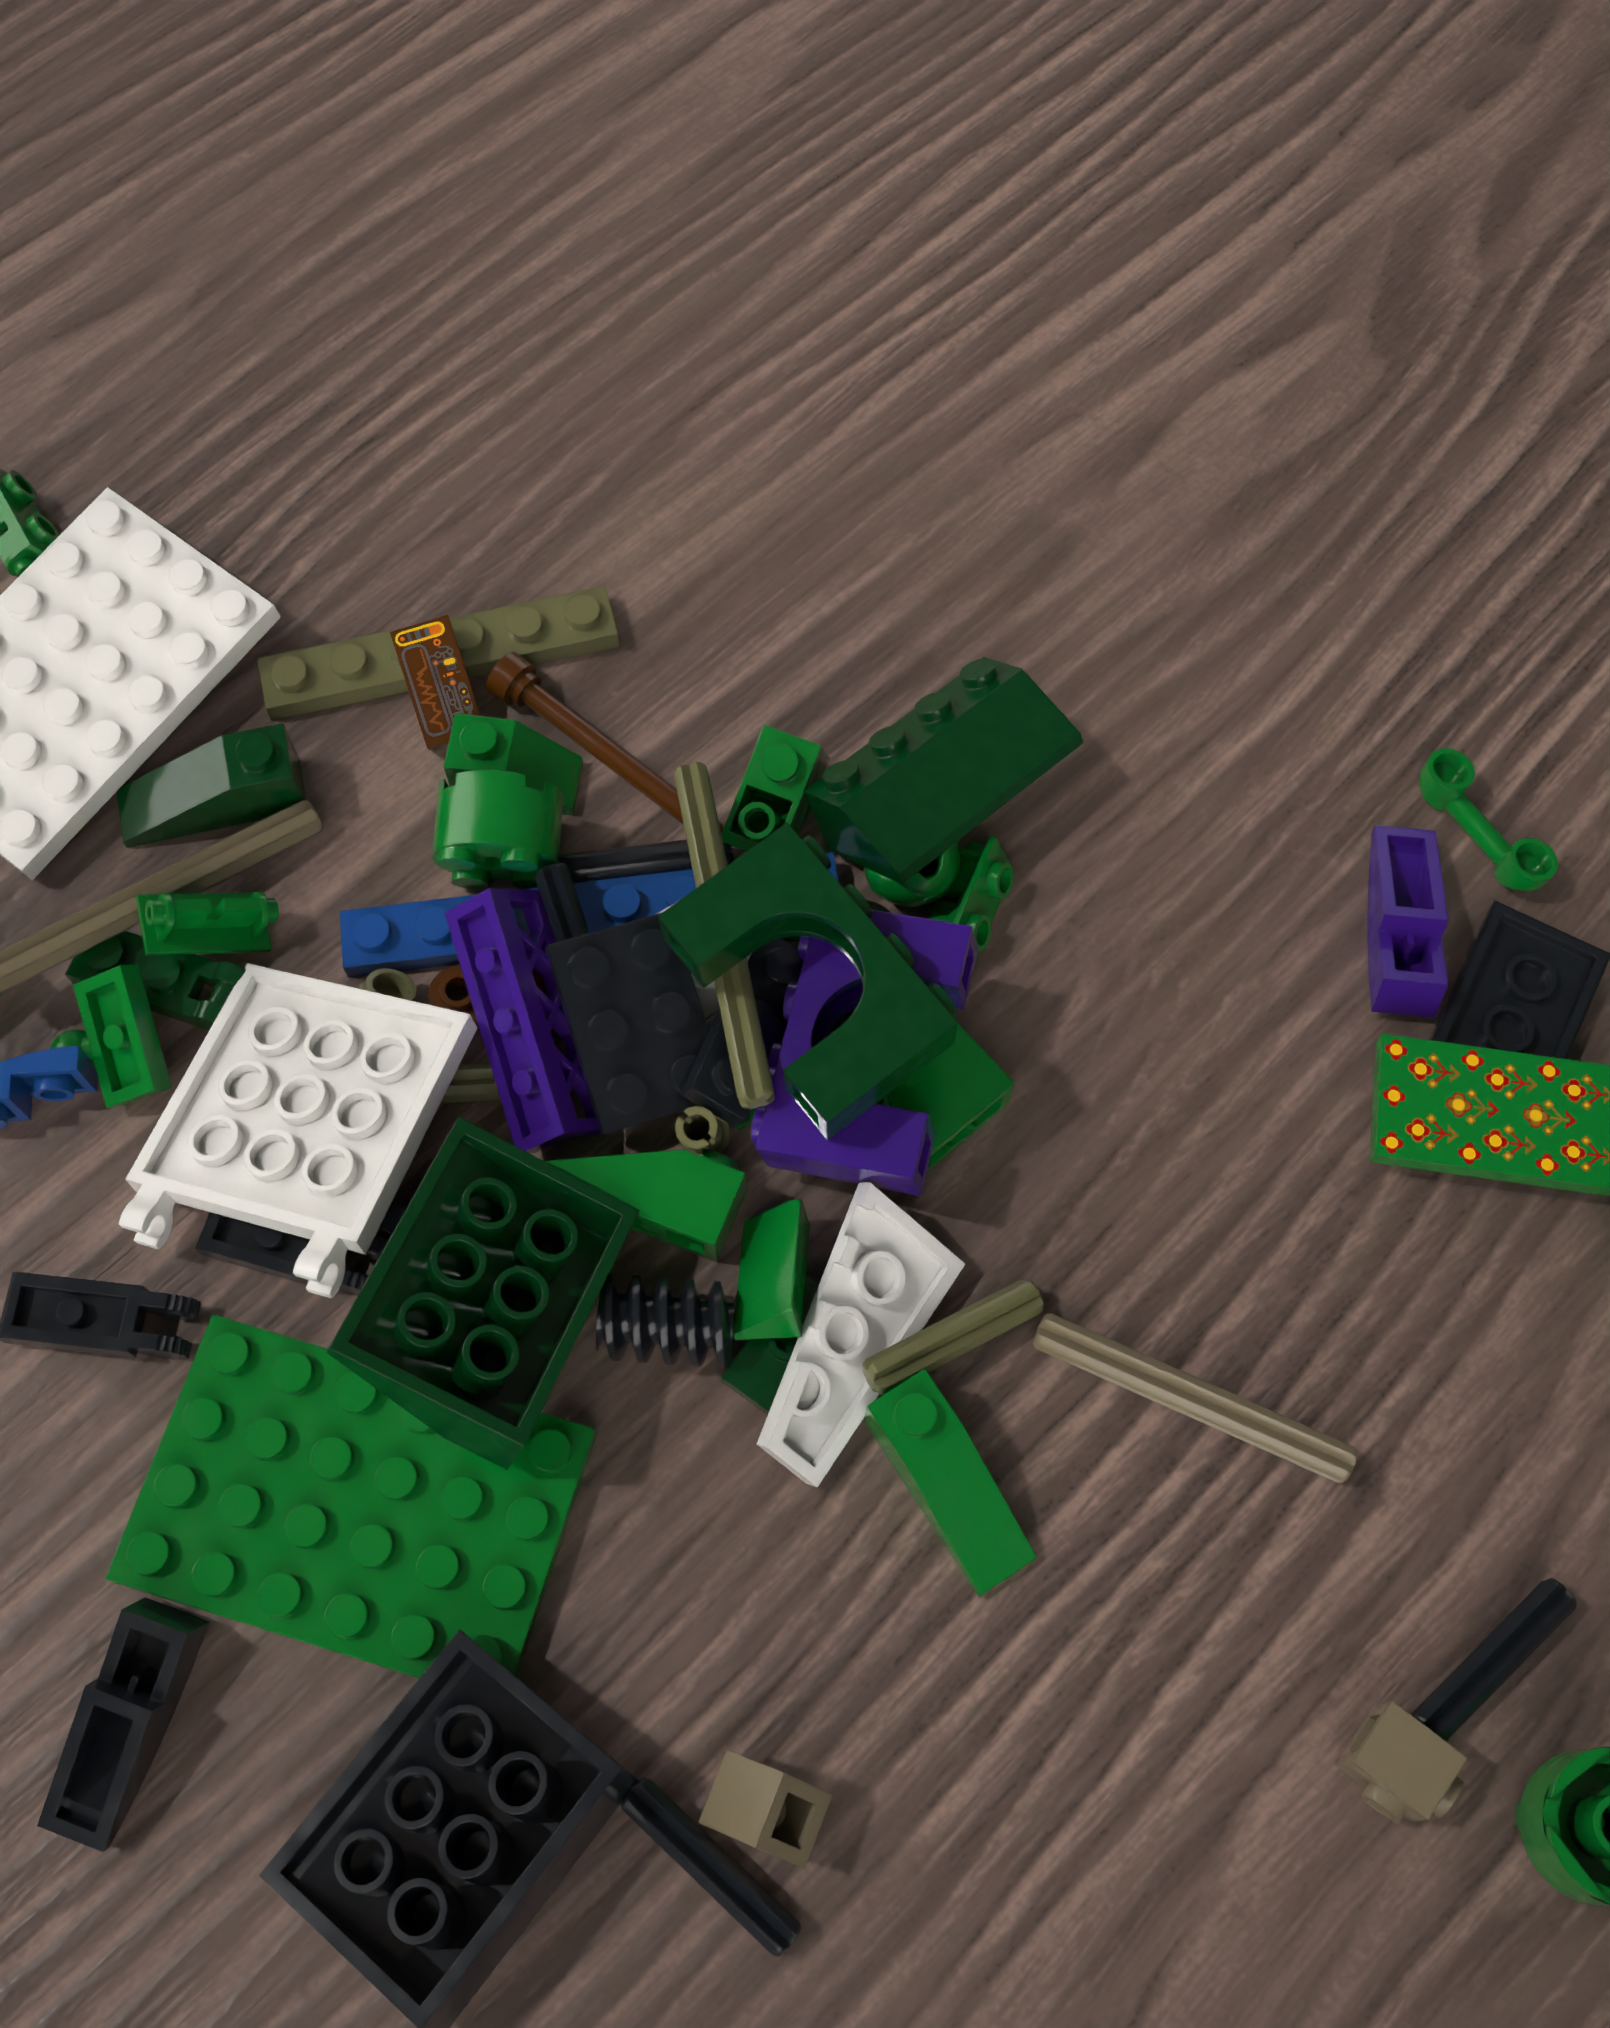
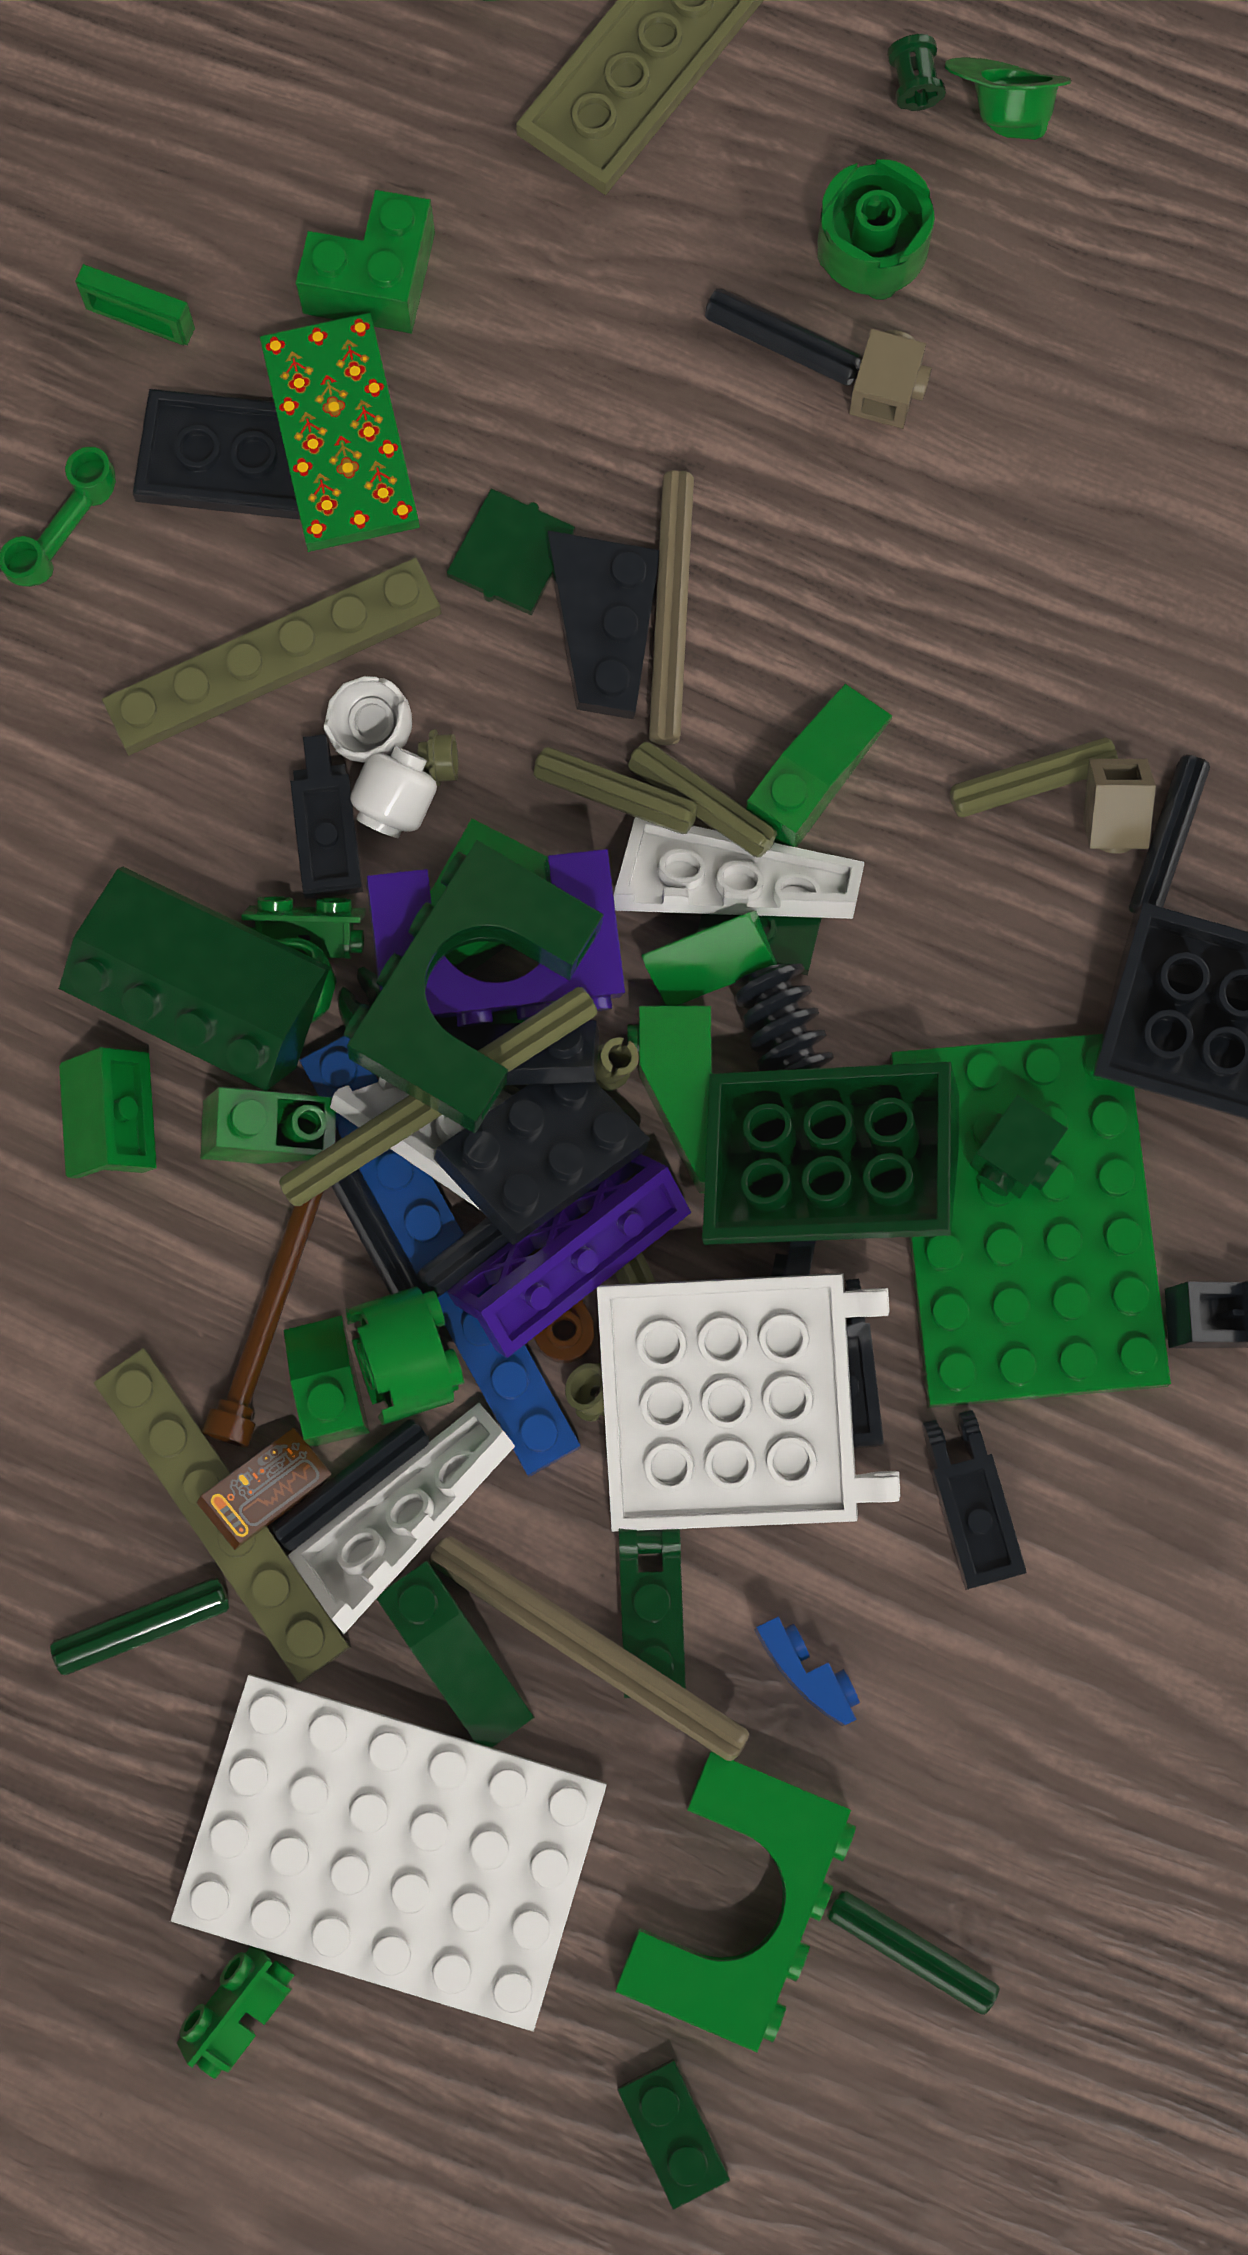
camera: 110 degrees left, 10 degrees up
(119, 1036) = (726, 1606): green plate -> none
(206, 922) = (589, 1582): green hinge -> none
(353, 774) = (387, 1527): none -> white wing
(374, 557) = (139, 1626): none -> dark green axle
(408, 760) = (350, 1484): none -> black axle
(412, 1505) = (1019, 1150): none -> dark green brick
(844, 1731) = (1028, 778): none -> olive axle
(850, 678) = (107, 1112): none -> green panel
(996, 1251) = (615, 790): none -> olive axle
(1071, 958) = (325, 824): none -> black hinge
(1074, 1025) = (393, 792): none -> white head
(1101, 1091) = (441, 756): none -> olive plate
(1164, 1032) = (368, 718): none -> white hair
(1204, 1319) = (605, 616): none -> black wing
(1273, 981) = (272, 656): none -> olive plate
(1315, 1255) = (508, 552): none -> dark green piece
(1406, 922) = (180, 559): dark purple slope -> none

